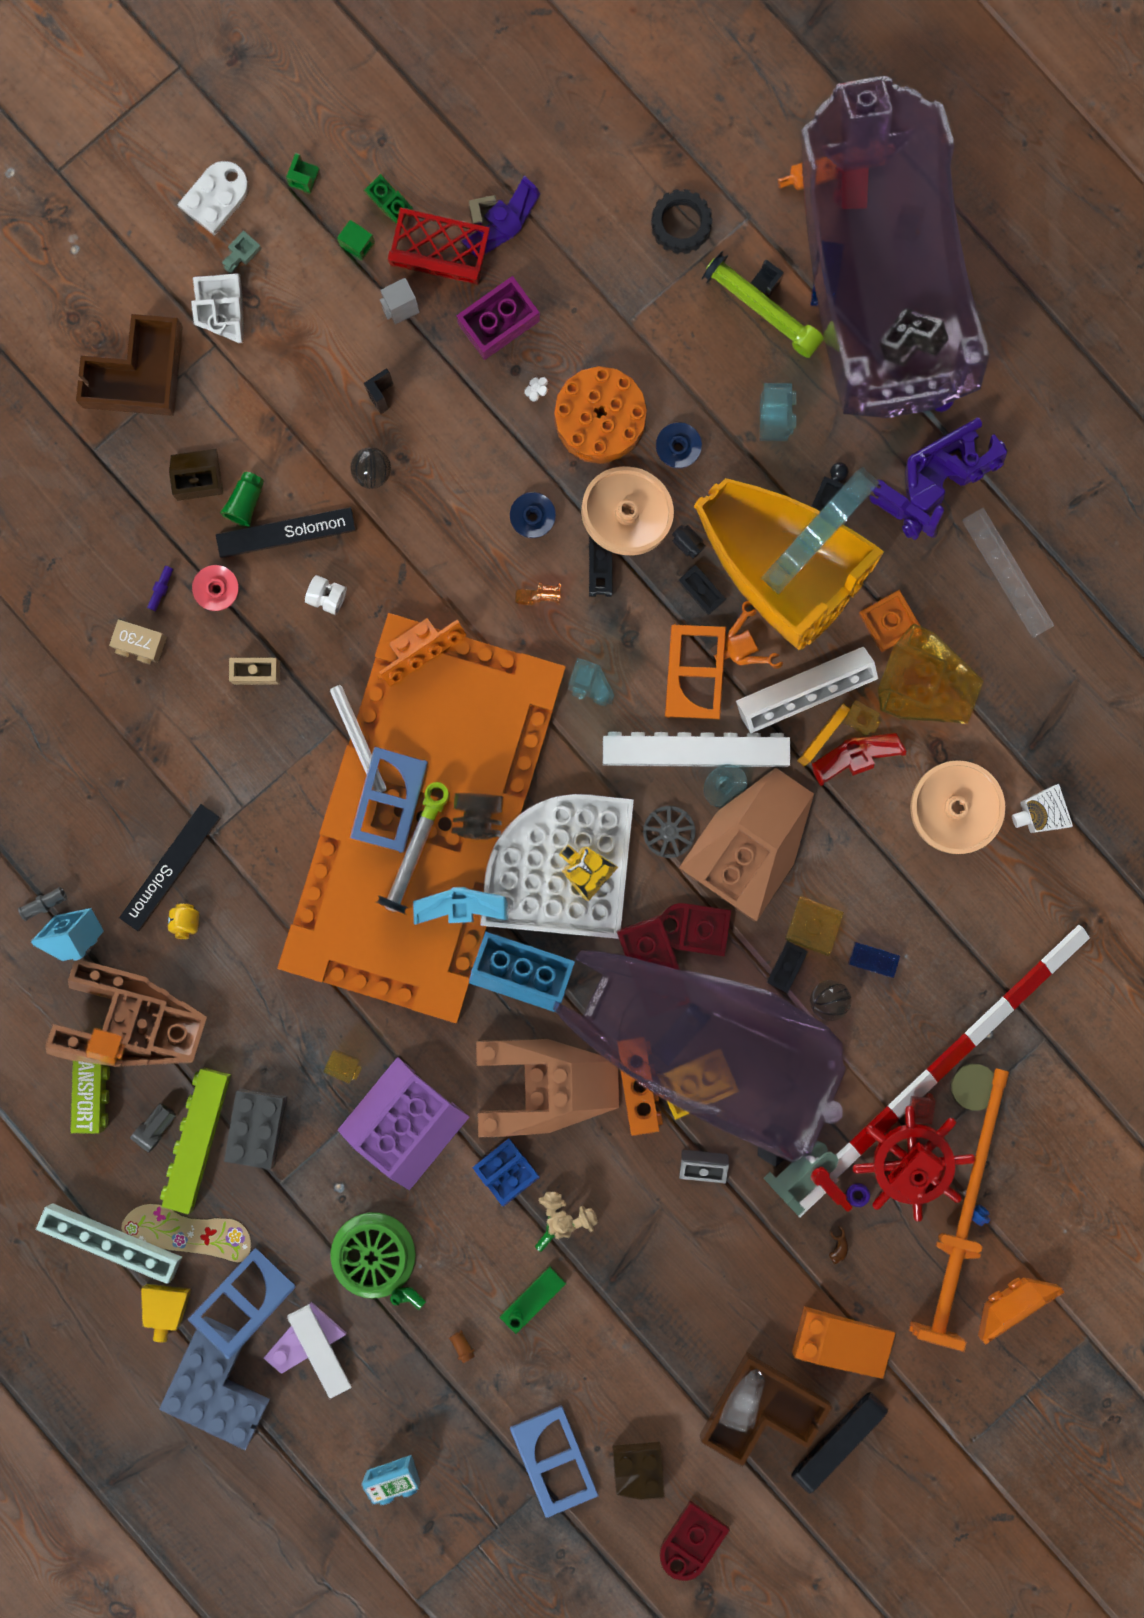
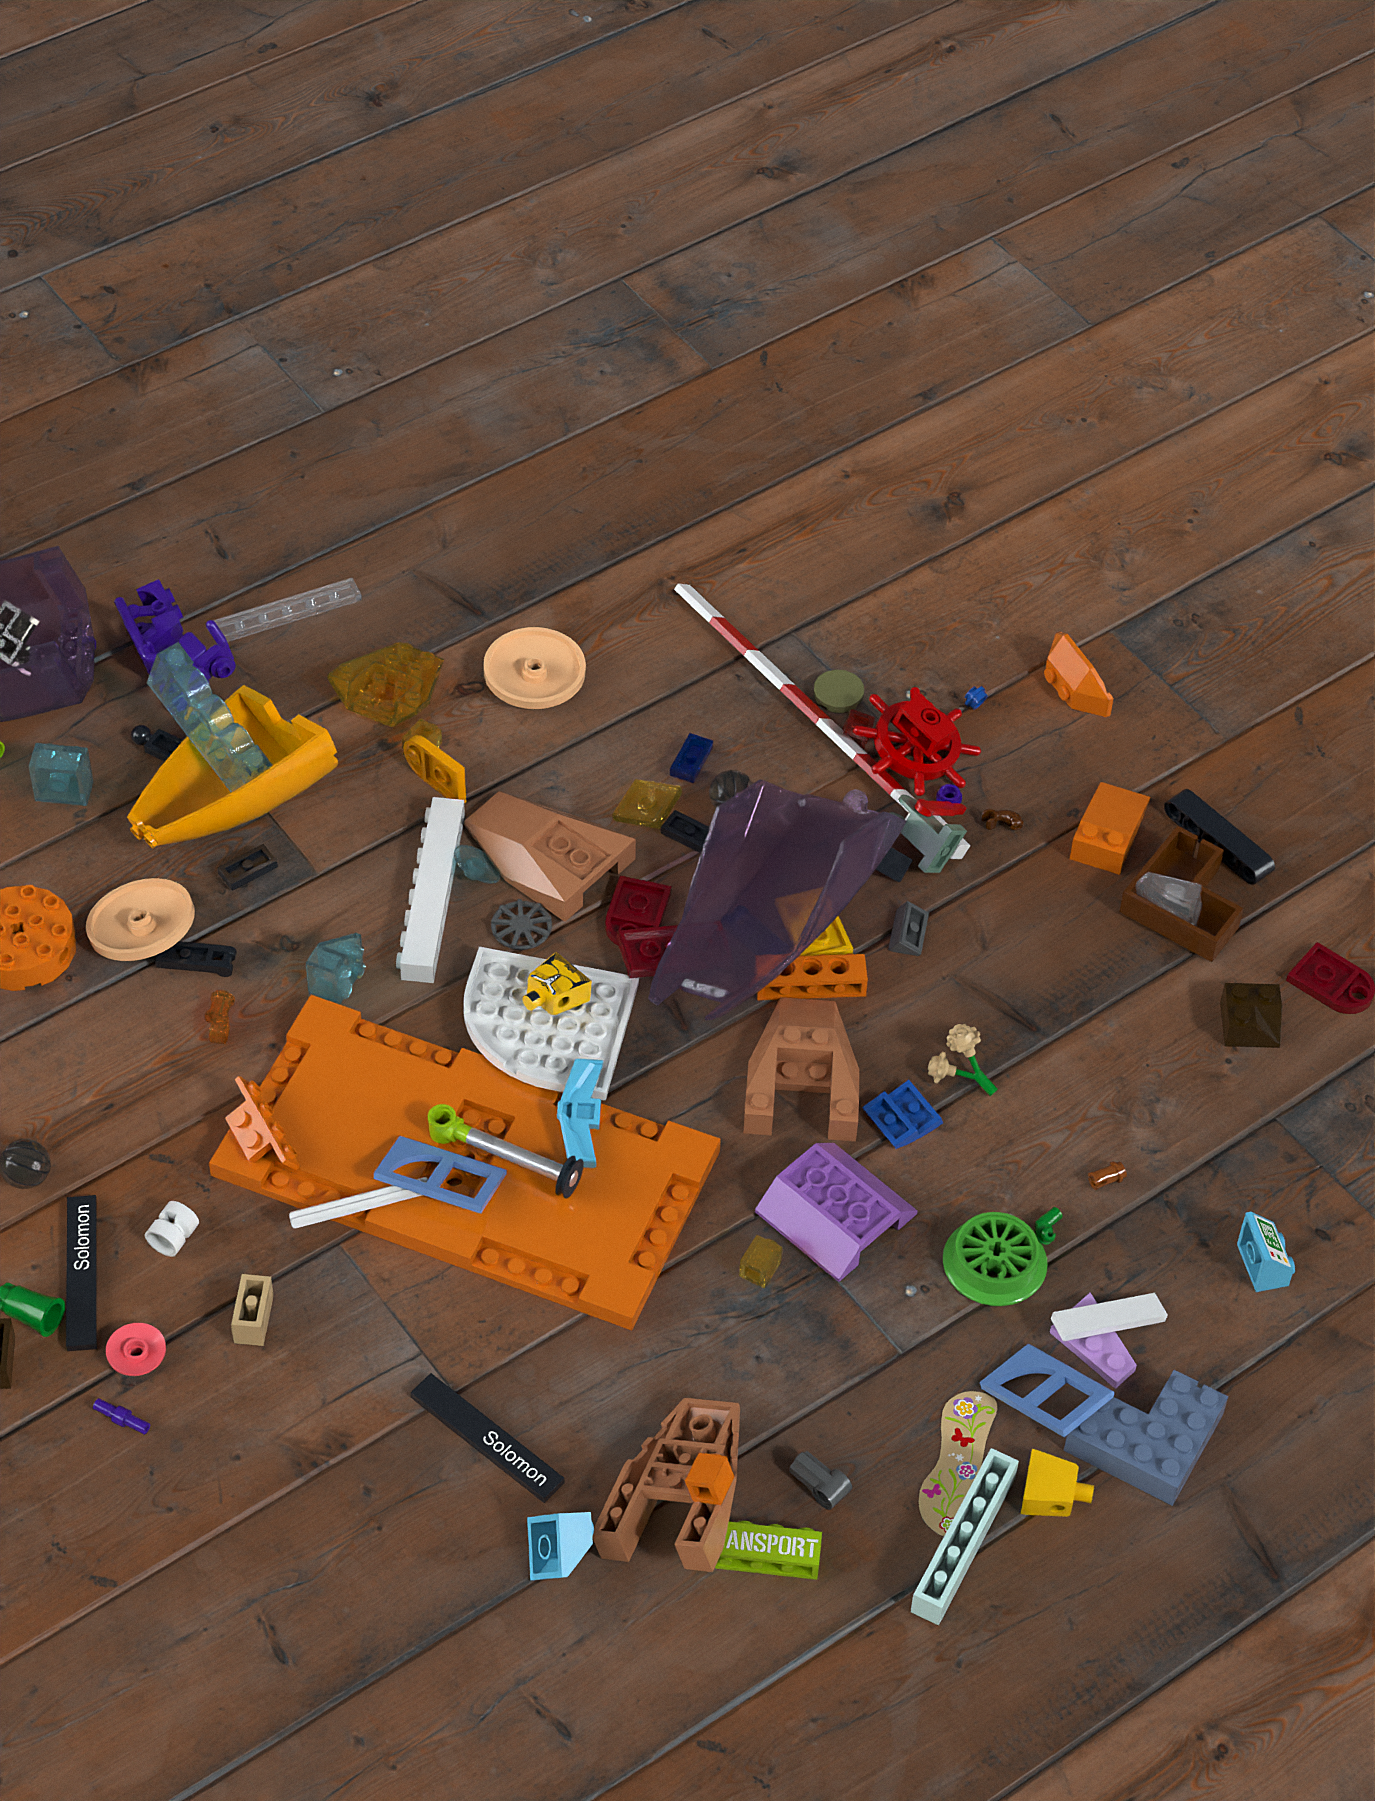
camera: 85 degrees left, 35 degrees down
(42, 904) = (513, 1587): dark grey pin -> none
(137, 641) = (186, 1443): tan brick -> none
(183, 921) = (558, 1421): yellow head -> none
(196, 1140) = (840, 1431): lime brick -> none
(255, 1129) = (830, 1362): dark grey brick -> none
(477, 815) = (474, 1077): clear smoke wheel -> none
(521, 971) = (666, 1065): dark azure brick -> none
(526, 1436) = (1216, 1125): medium blue window -> none
(528, 504) = (120, 1005): dark blue dish -> none
(532, 1300) = (1060, 1109): green piece -> none
(676, 702) = (373, 904): orange window -> none
(680, 434) = (74, 870): dark blue dish -> none
(688, 541) = (189, 871): black brick -> none
(743, 645) = (318, 834): orange piece -> none
(807, 689) = (381, 781): white brick -> none
(857, 755) = (464, 747): red plate -> none
(888, 620) = (320, 707): orange tile -> none
(959, 1246) = (1006, 711): orange piece -> none
(1044, 811) = (549, 602): white torso -> none

